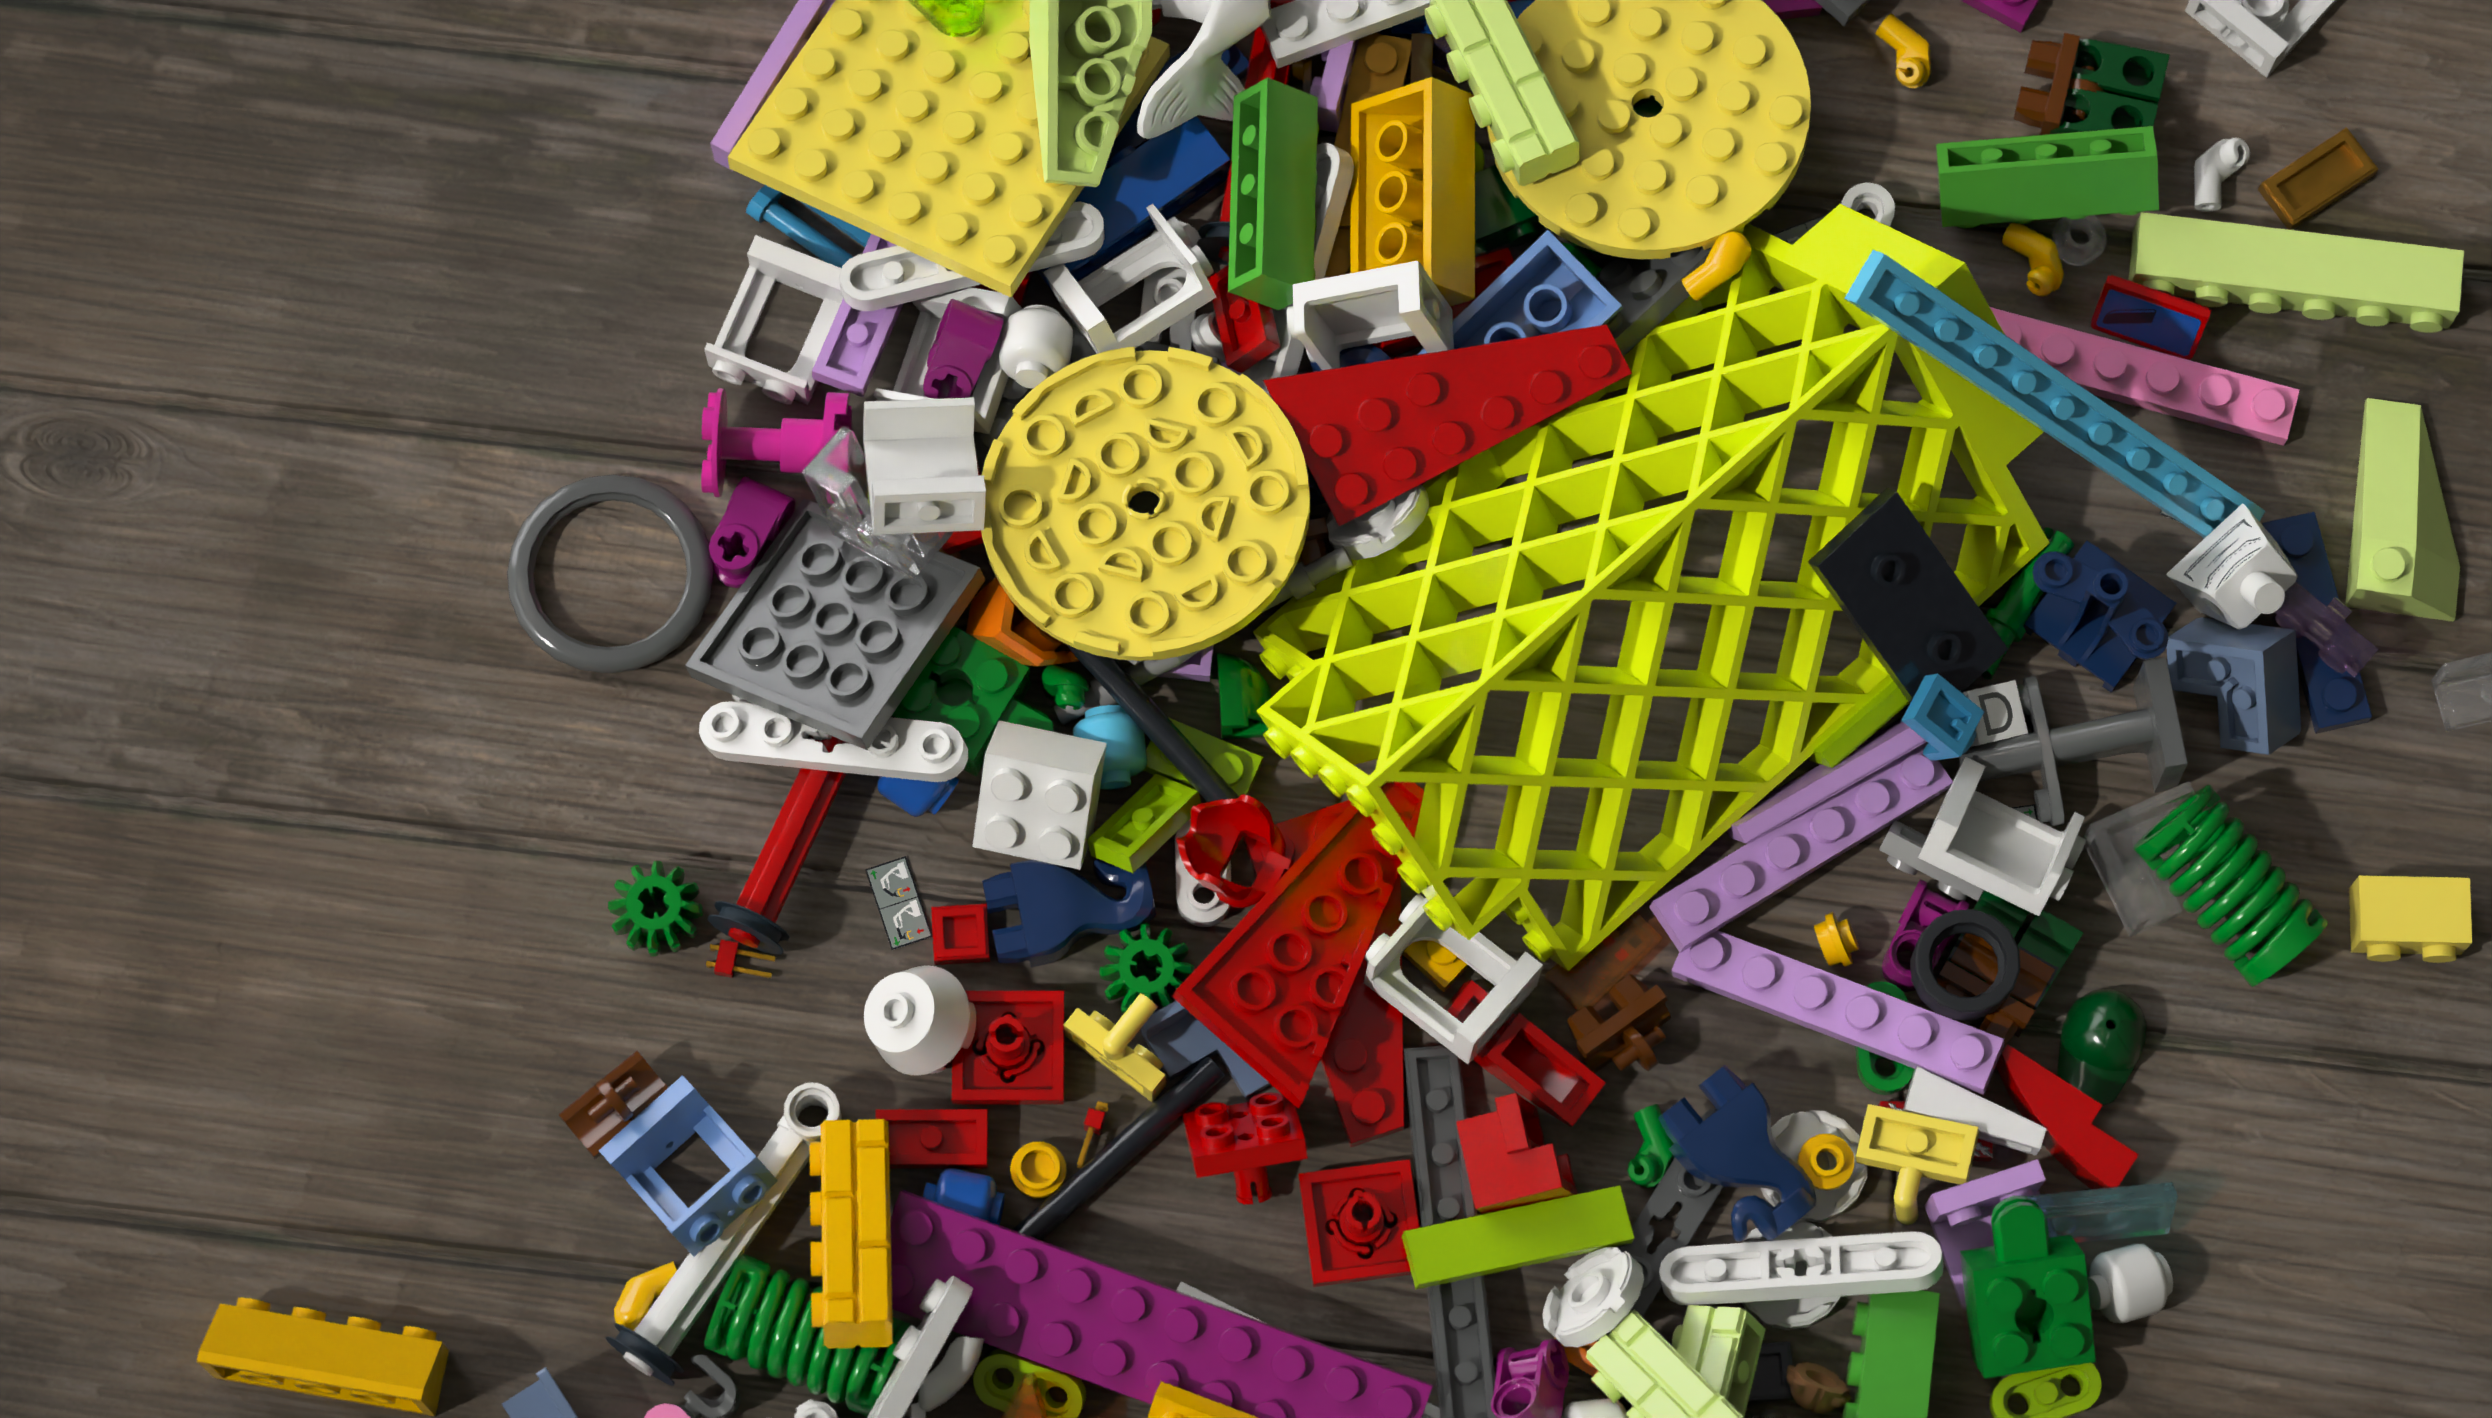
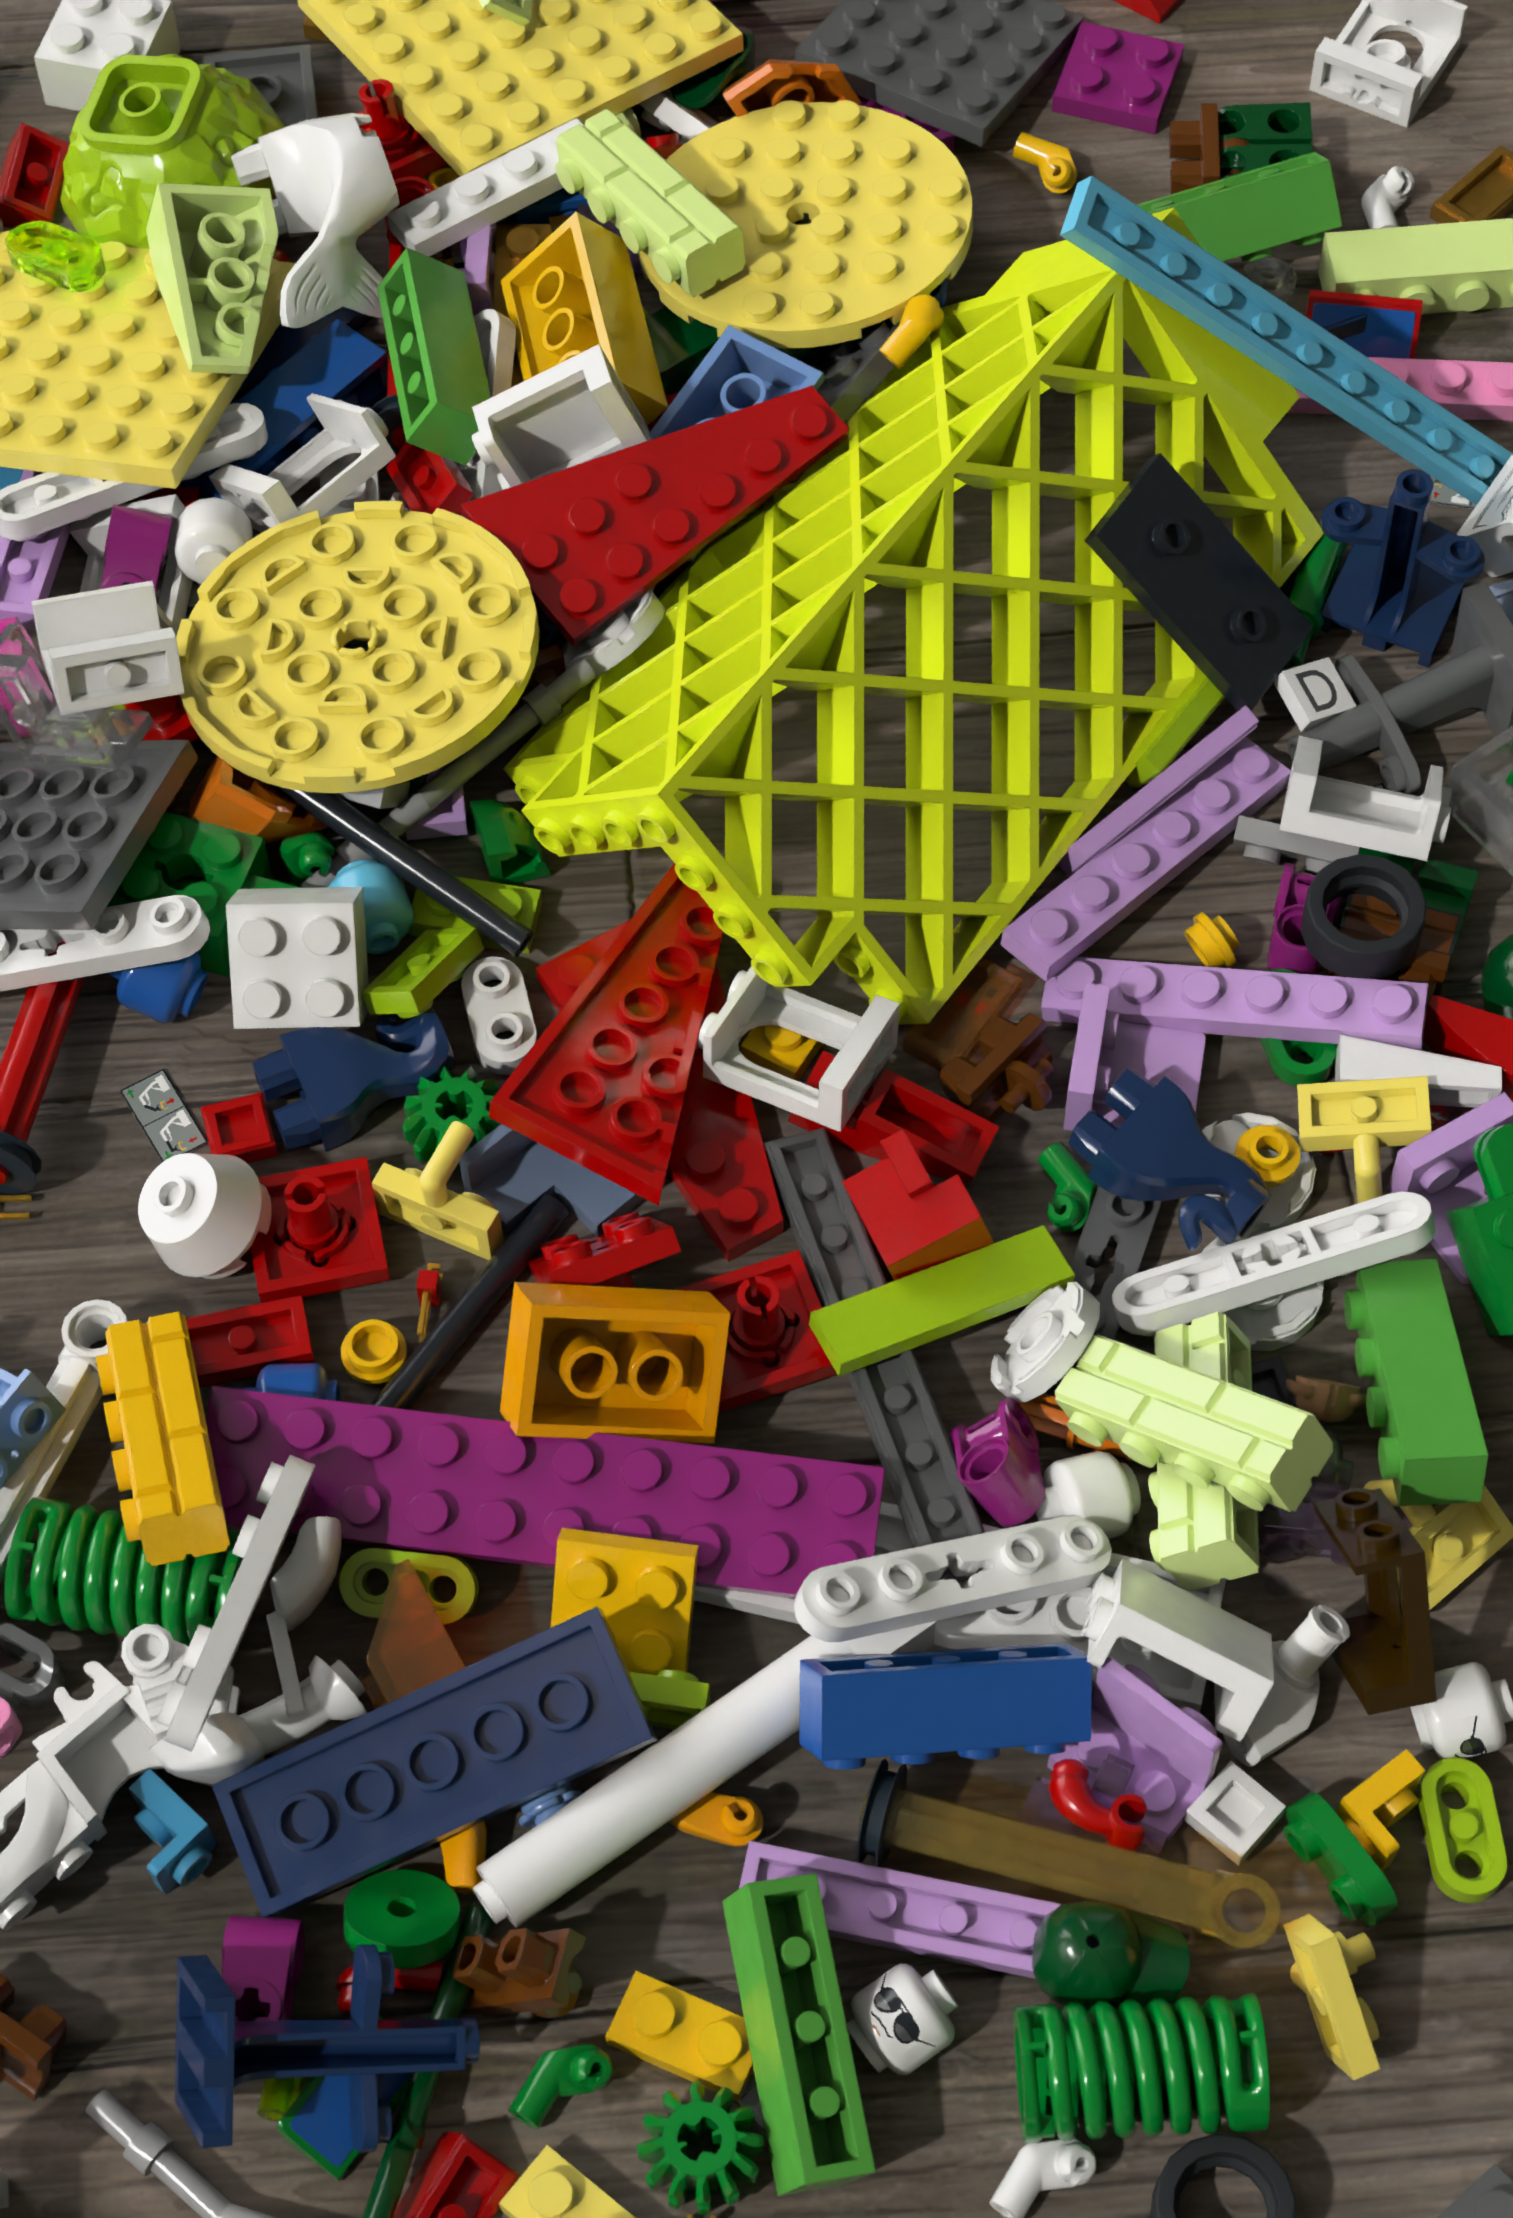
camera: 10 degrees left, 15 degrees down
(1214, 837) = (508, 953): red helmet -> none
(1232, 1244) = (614, 1362): none -> light orange brick
(1737, 1035) = (1111, 1046): none -> lavender bracket
(1942, 718) = (1267, 693): dark azure bracket -> none

